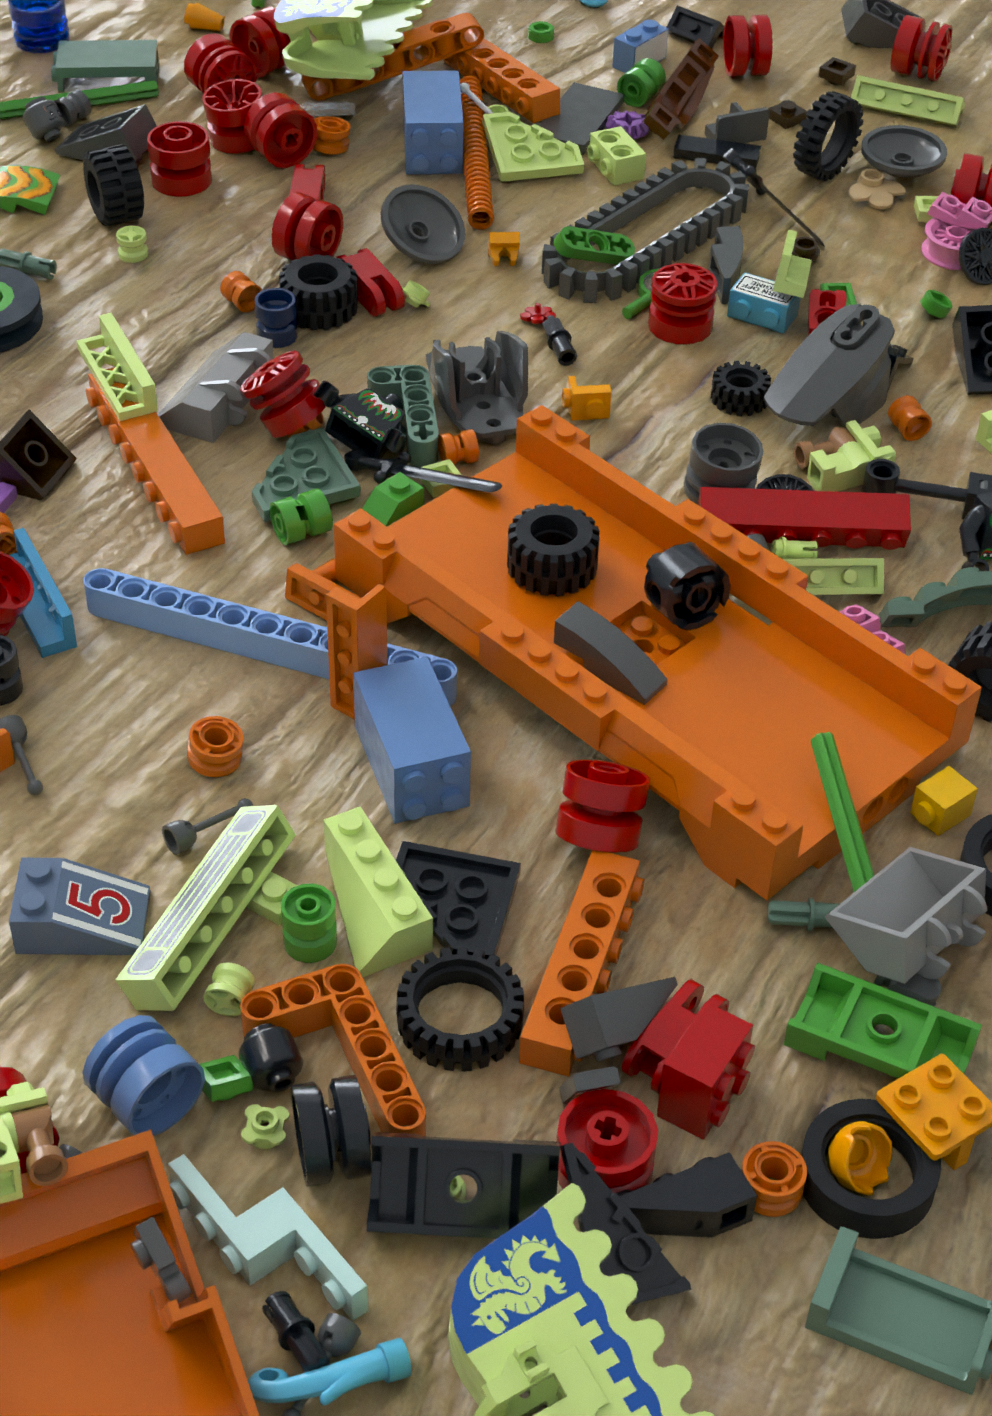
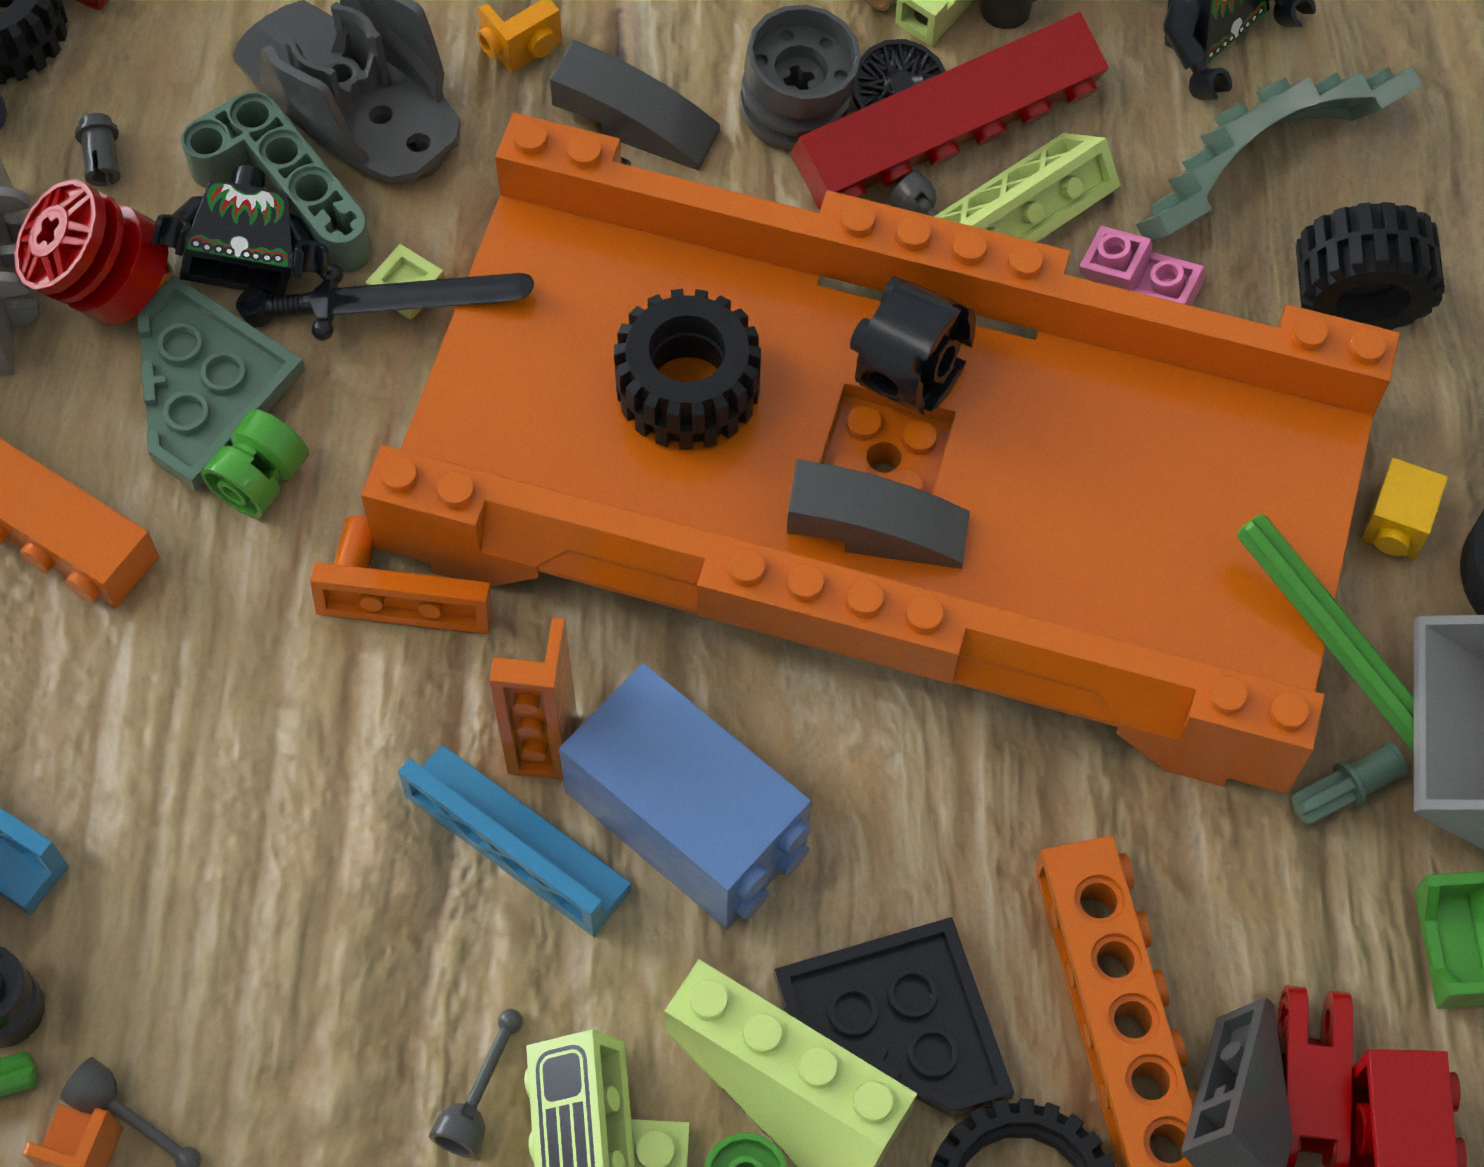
camera: 30 degrees left, 20 degrees up
(215, 746) = (413, 921): orange wheel -> none
(229, 625) = (320, 701): light blue beam -> none
(310, 729) = (515, 838): none -> dark azure fence
(330, 362) = (98, 138): none -> dark grey pin
(394, 499) = (374, 386): bright green slope -> none
(459, 447) = (397, 214): orange wheel -> none
(602, 805) = (1017, 776): red wheel -> none
(623, 447) = (632, 106): none -> dark grey slope
(794, 549) = (955, 176): yellowish green pin -> none

